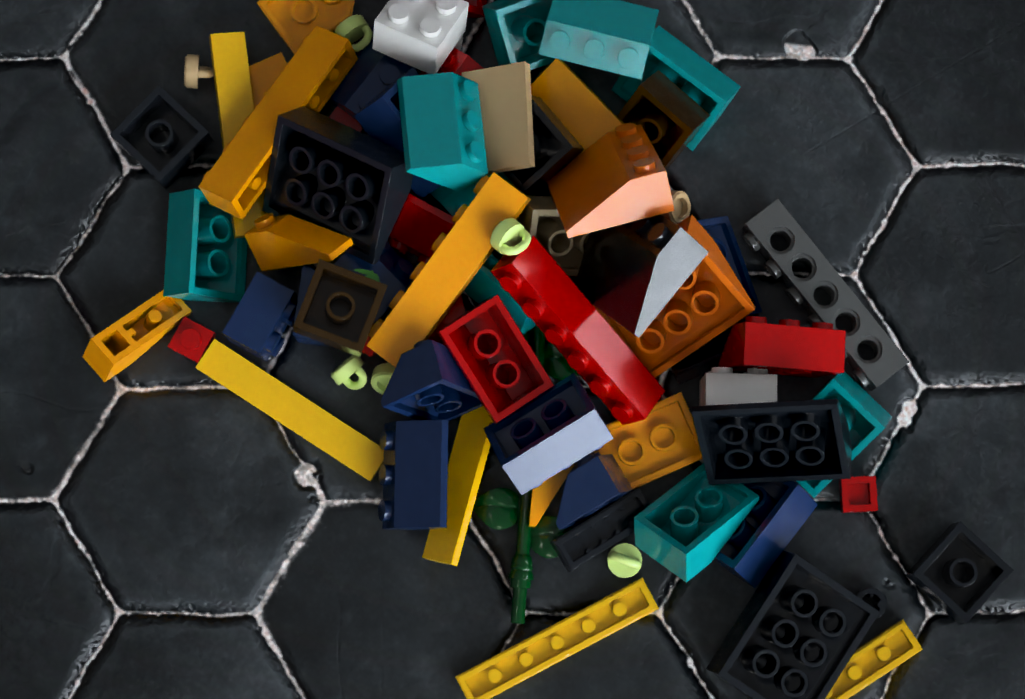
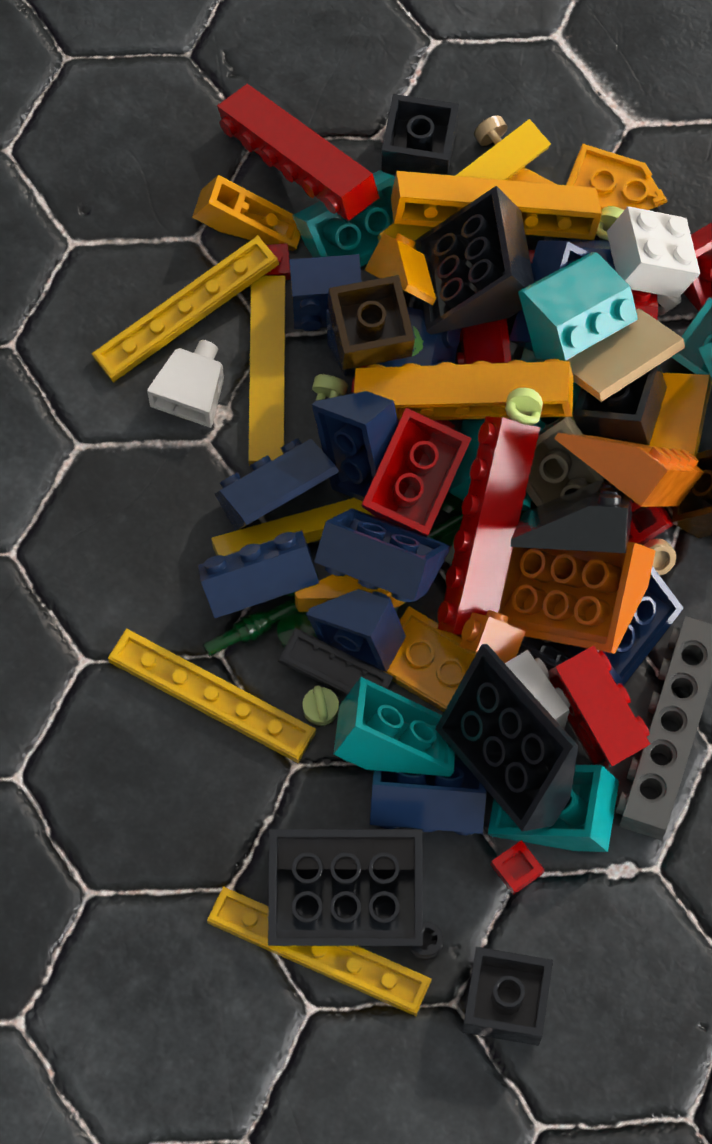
camera: 60 degrees right, 15 degrees down
(111, 254) = (298, 152): none -> red brick
(190, 443) = (185, 308): none -> yellow tile
(265, 484) = (189, 384): none -> white torso
(492, 543) = (258, 573): none -> dark blue slope
(670, 390) = (495, 632): none -> orange brick

